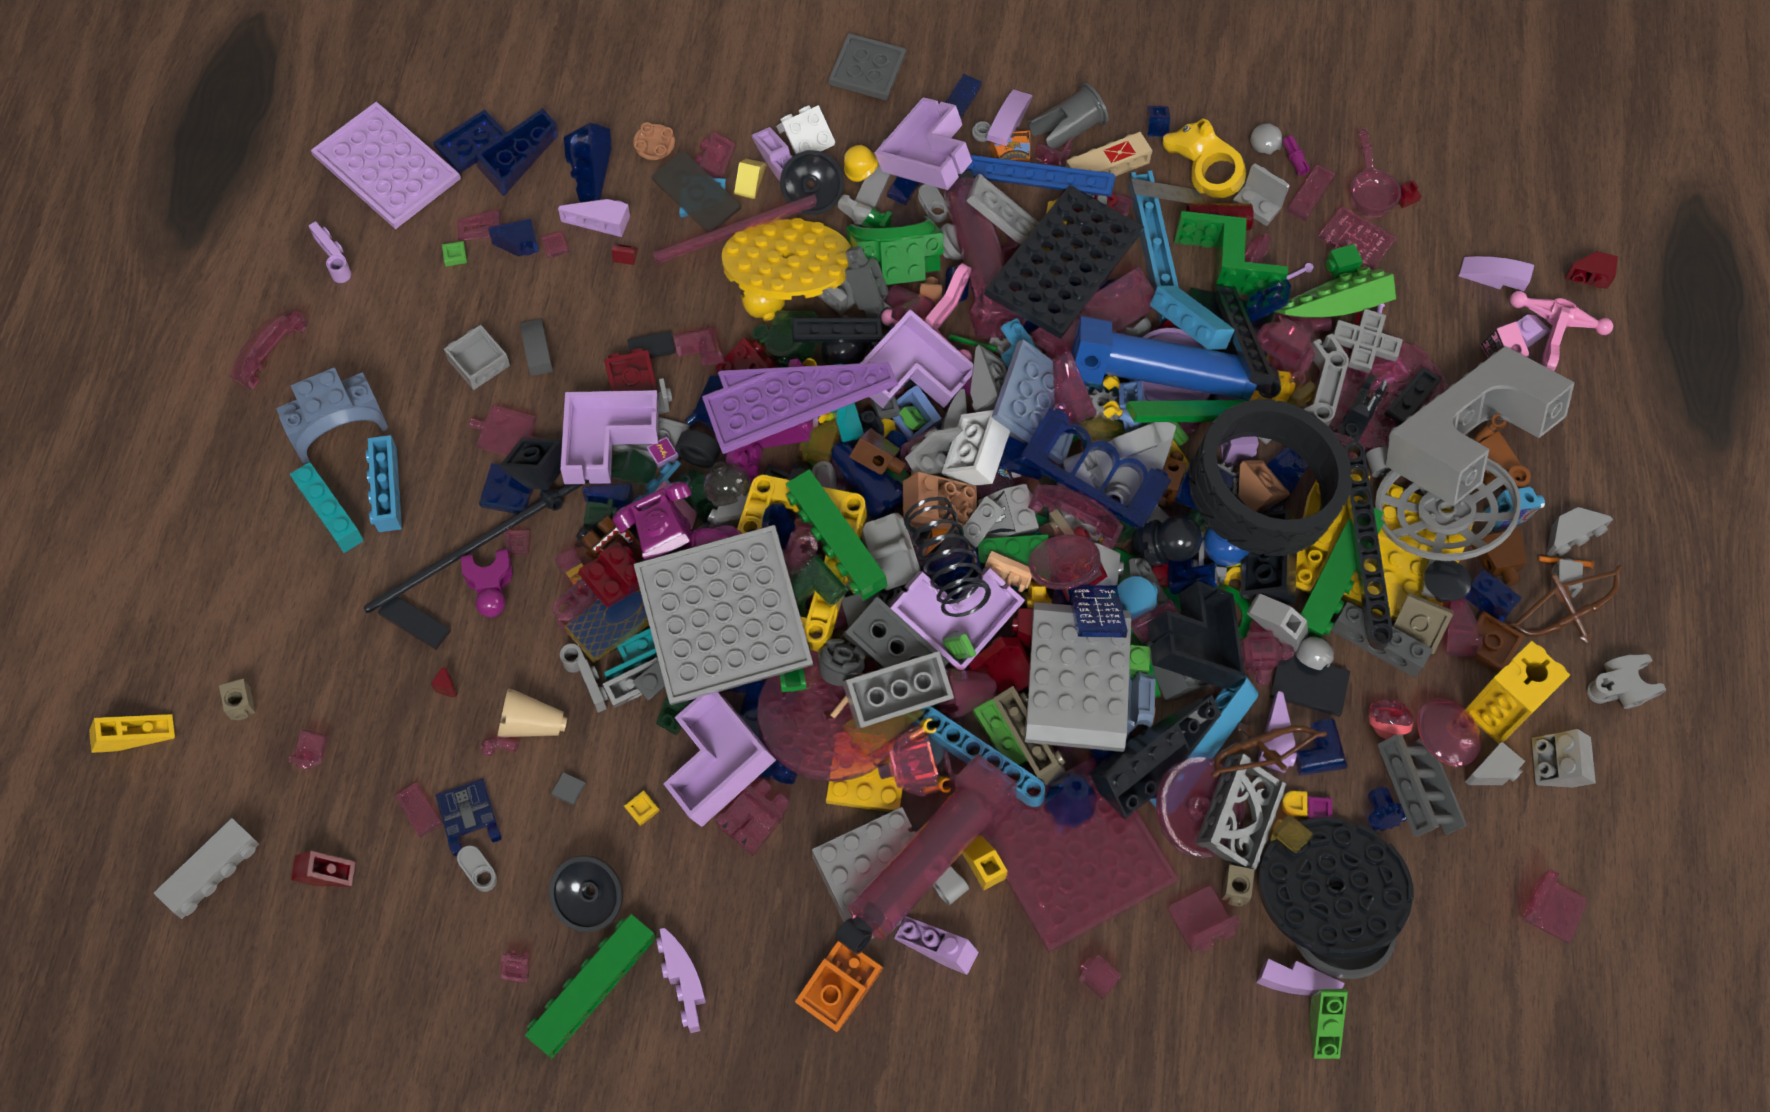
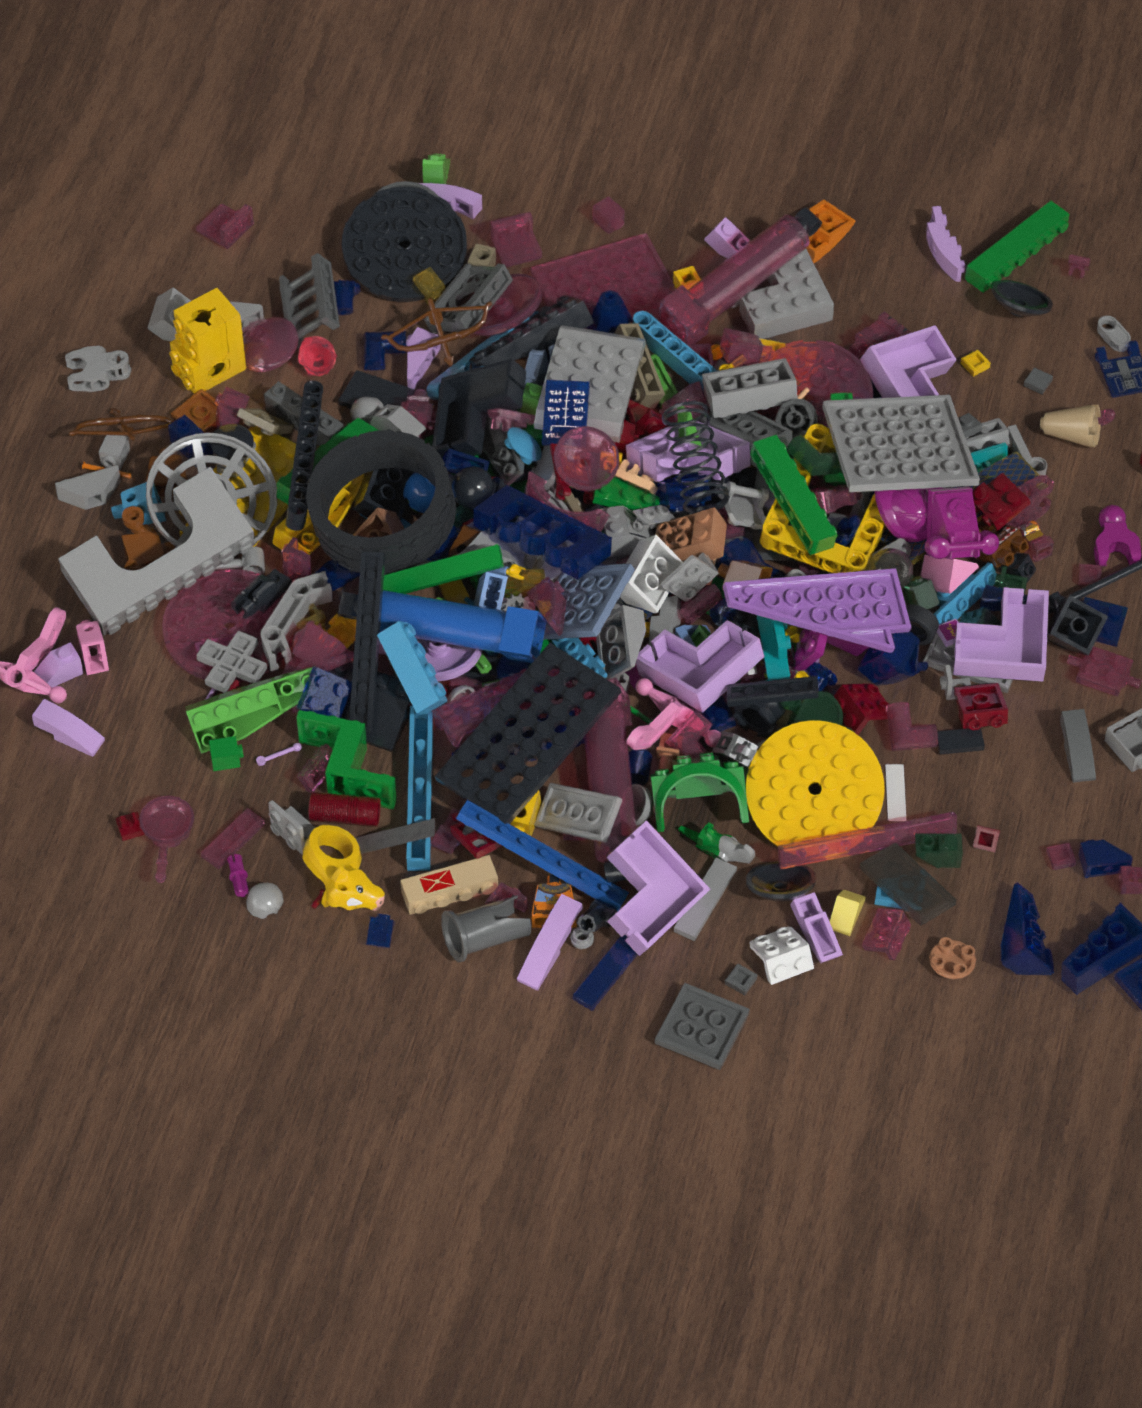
camera: 170 degrees left, 10 degrees down
(598, 215) = (1004, 871): lavender slope -> none
(668, 228) = (940, 849): none -> clear green slope
(711, 294) = (895, 792): none -> white sticker
(838, 112) = (741, 979): none -> dark grey tile
(859, 163) = (723, 909): yellow helmet -> none
(974, 135) = (596, 917): none -> black piece
(1295, 803) = (414, 312): yellow tile -> none
(1319, 807) = (396, 309): magenta tile -> none
(1350, 228) = (199, 785): clear pink tile -> none
(1413, 396) = (202, 610): black tile -> none

